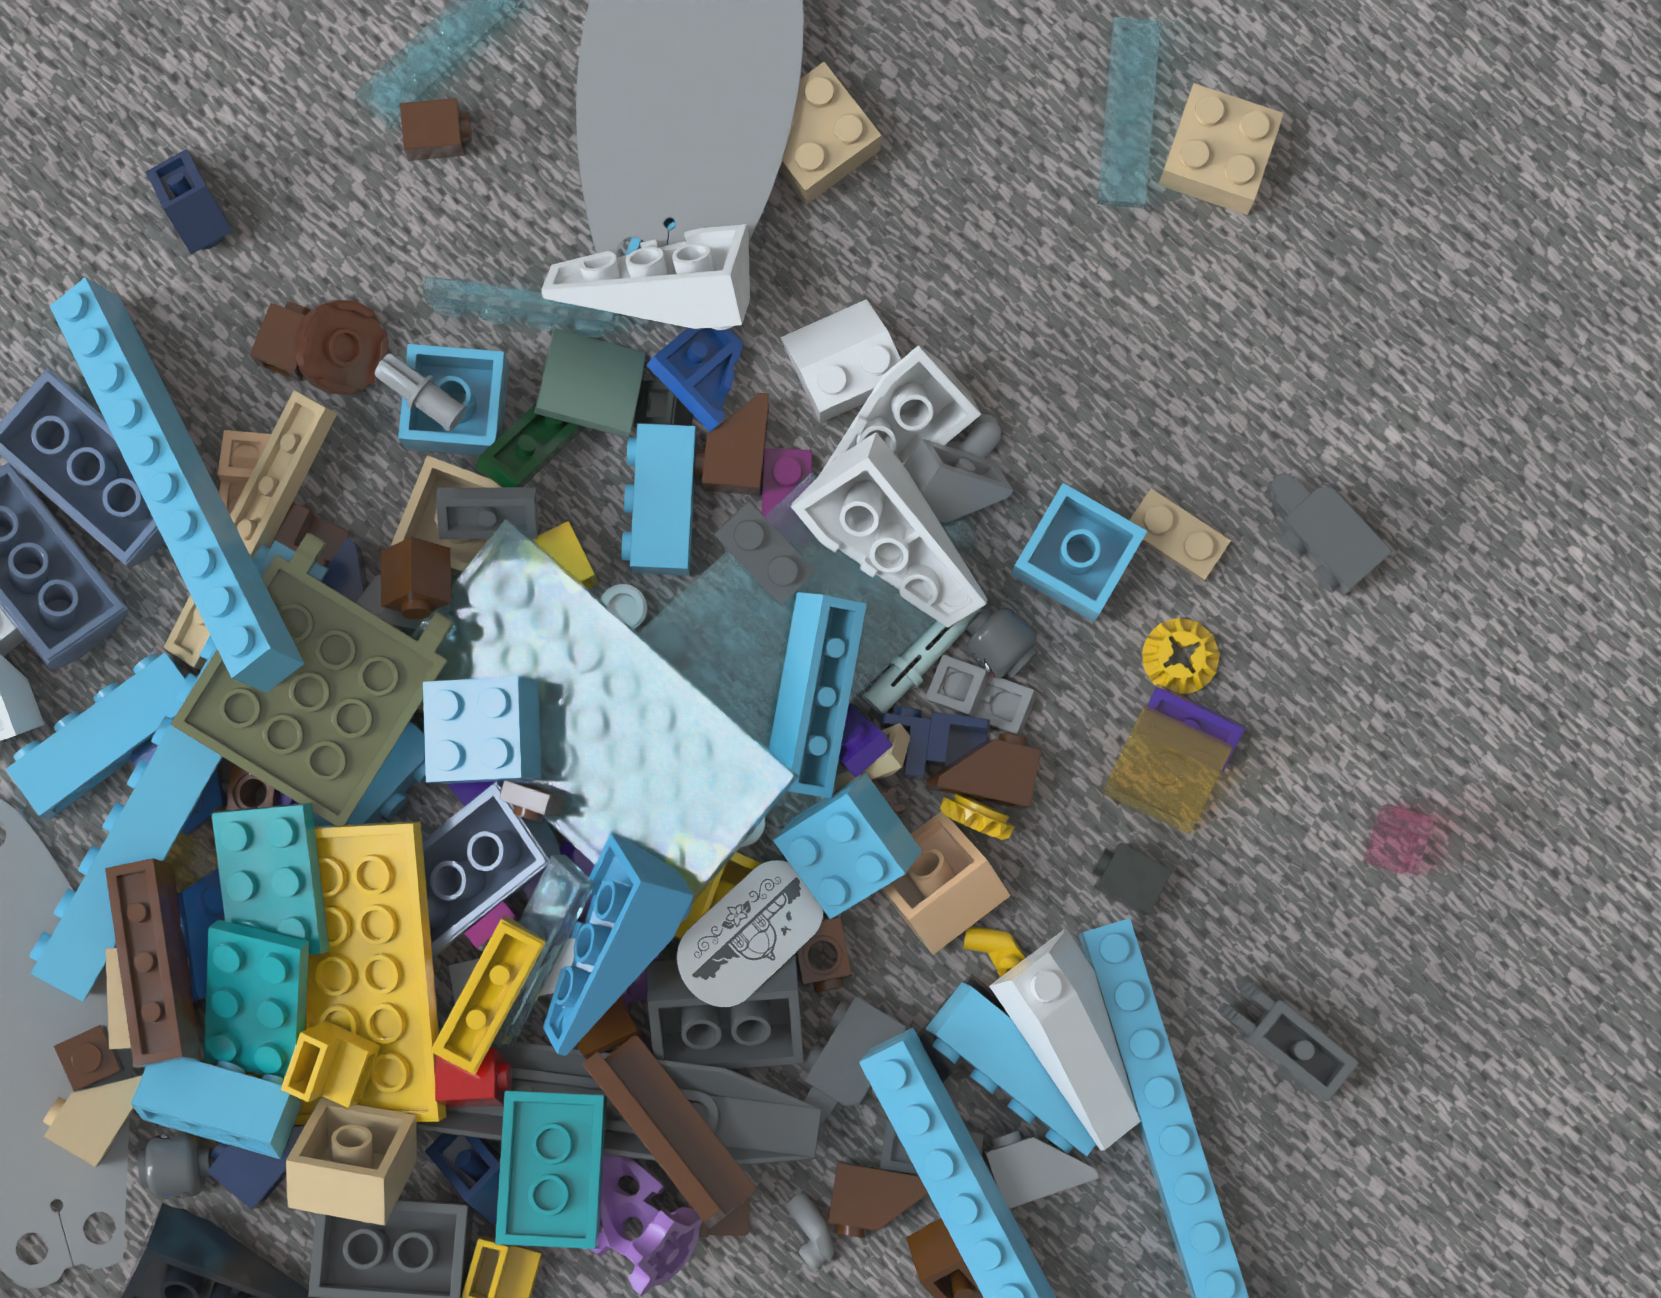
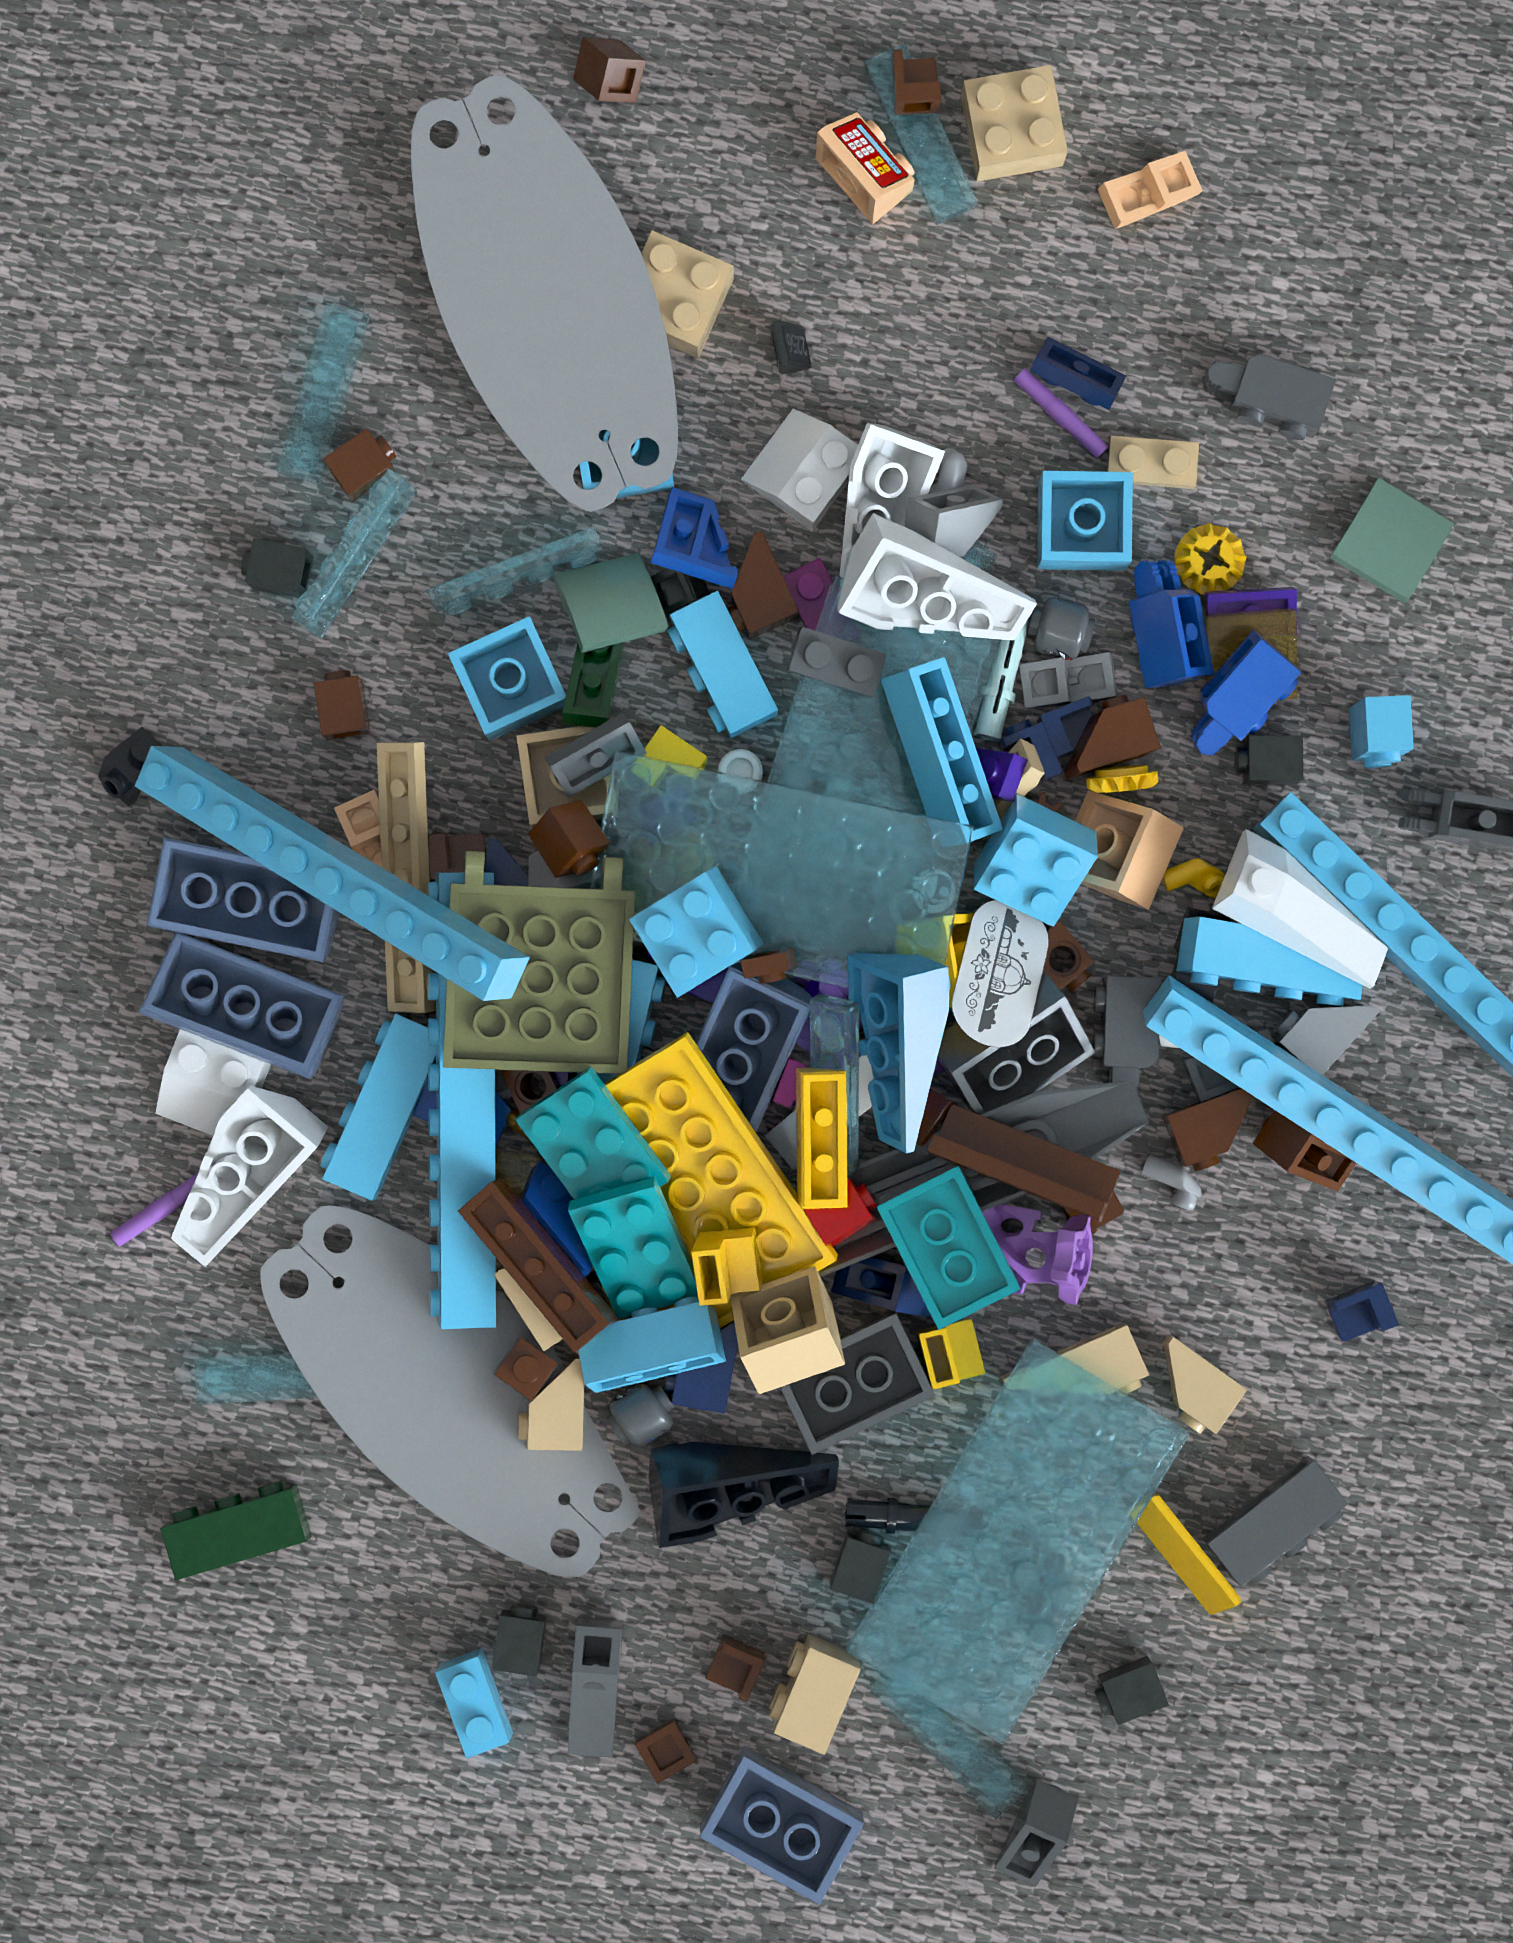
camera: 30 degrees left, 5 degrees up
(53, 281) = (124, 764): none -> black bracket
(189, 202) = (194, 636): dark blue slope -> none
(302, 182) = (277, 568): none -> pearl dark grey brick
(340, 346) = (390, 686): copper tile -> none
(380, 207) = (355, 552): none -> clear light blue plate
(420, 391) = (482, 686): light grey axle -> none
(679, 284) = (644, 479): white wedge -> none
(895, 241) = (790, 347): none -> slope
(1058, 111) = (863, 165): none -> light nougat slope
(1102, 697) = (1168, 627): none -> blue hinge
(1116, 442) = (1061, 413): none -> medium lavender piece
(1138, 798) = (1243, 693): none -> hinge
(1146, 63) = (914, 85): none -> reddish brown panel
(1151, 413) = (1077, 373): none -> dark blue plate
(1250, 908) = (1381, 730): none -> medium azure brick
(1316, 281) = (1150, 189): none -> light nougat slope
(1364, 734) = (1392, 540): none -> sand green slope
(1398, 840) = (1466, 610): clear pink panel -> none

